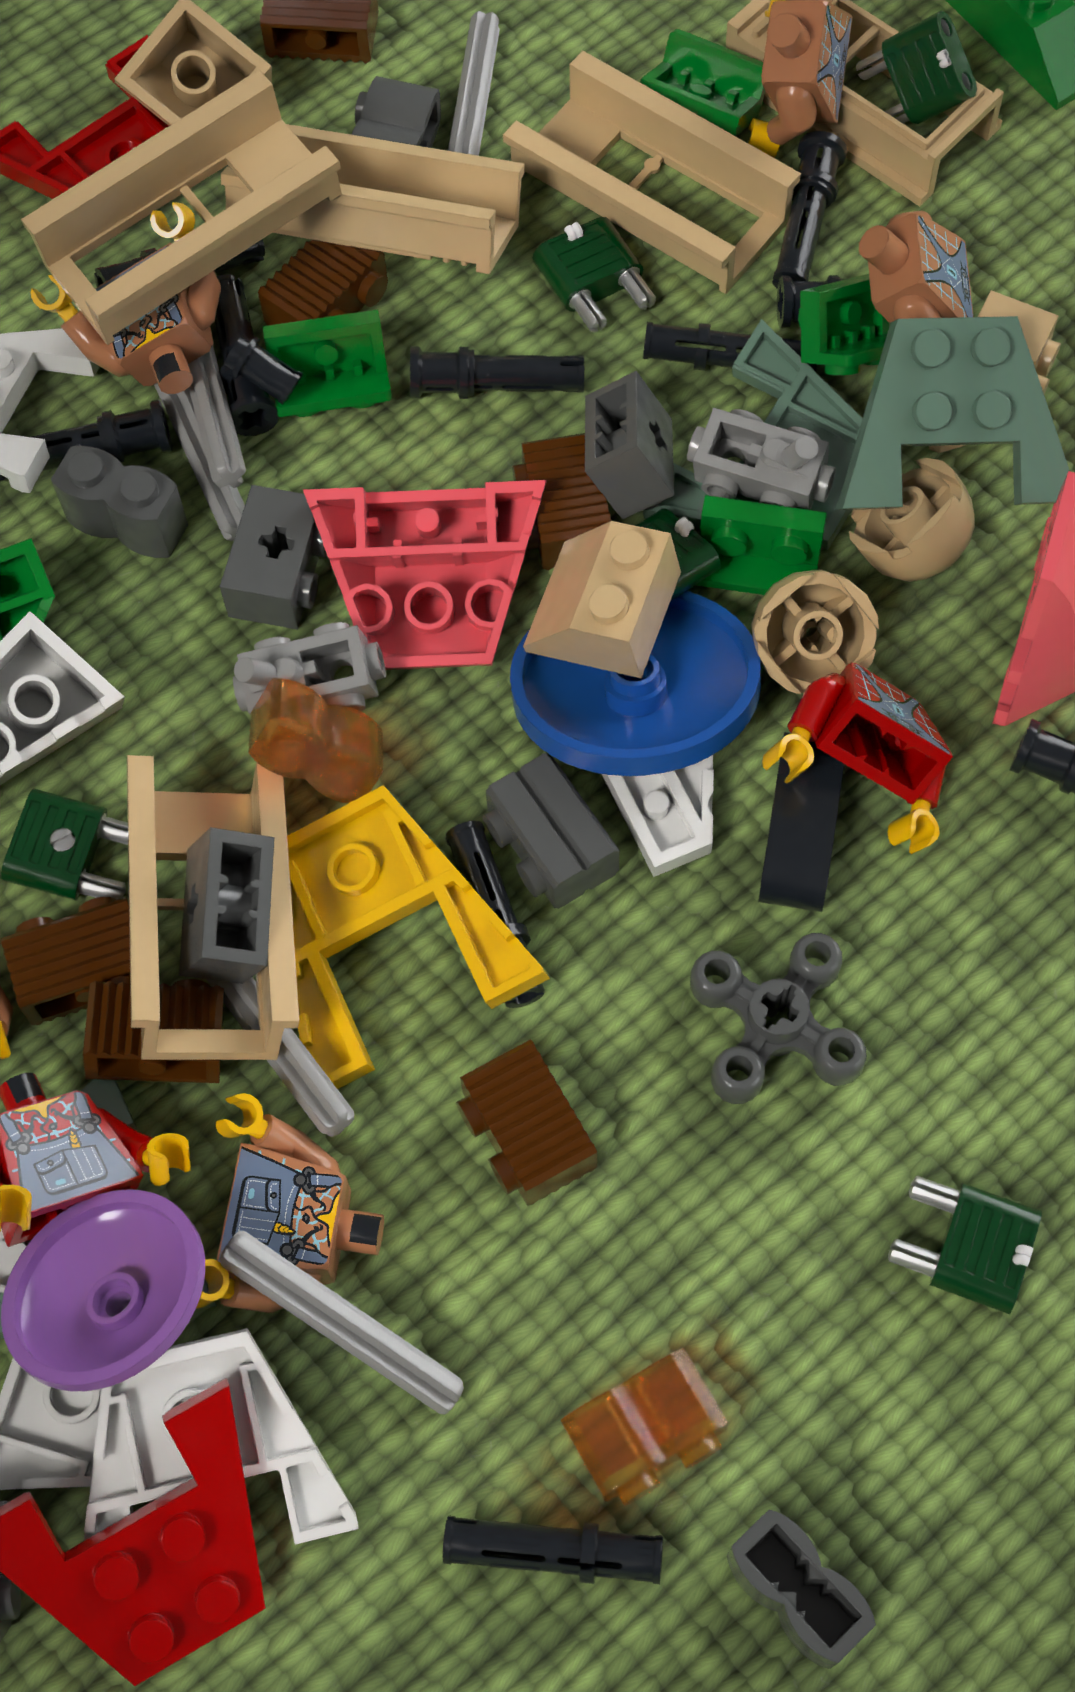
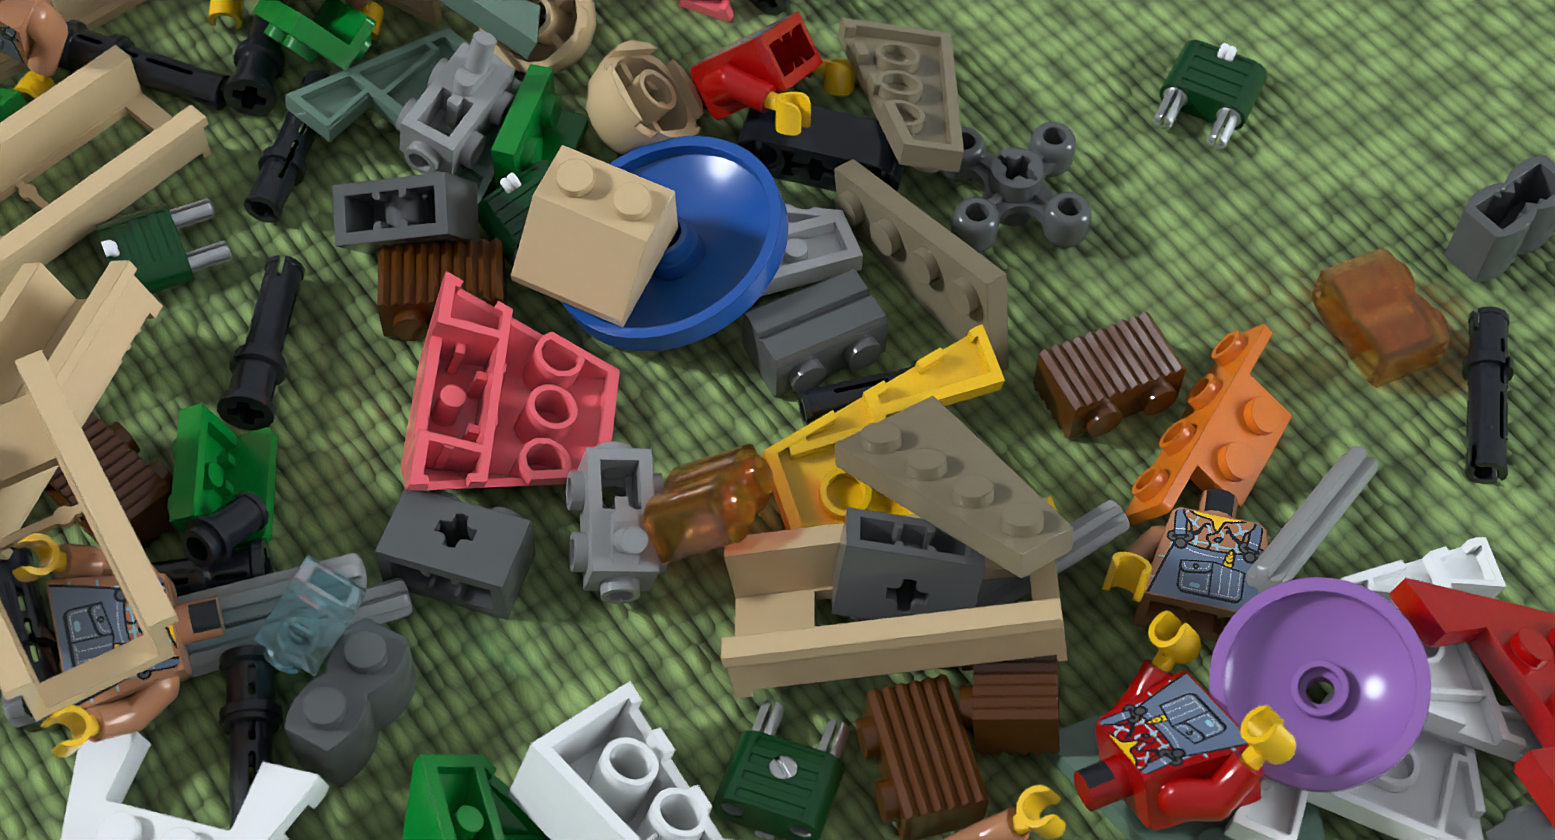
camera: 90 degrees left, 10 degrees down
(166, 440) = (321, 602): none -> clear light blue brick
(313, 935) = (957, 484): none -> dark tan wing
(466, 1244) = (1221, 434): none -> orange bracket
(643, 924) = (927, 259): none -> dark tan wing
(892, 893) = (910, 88): none -> dark tan wing

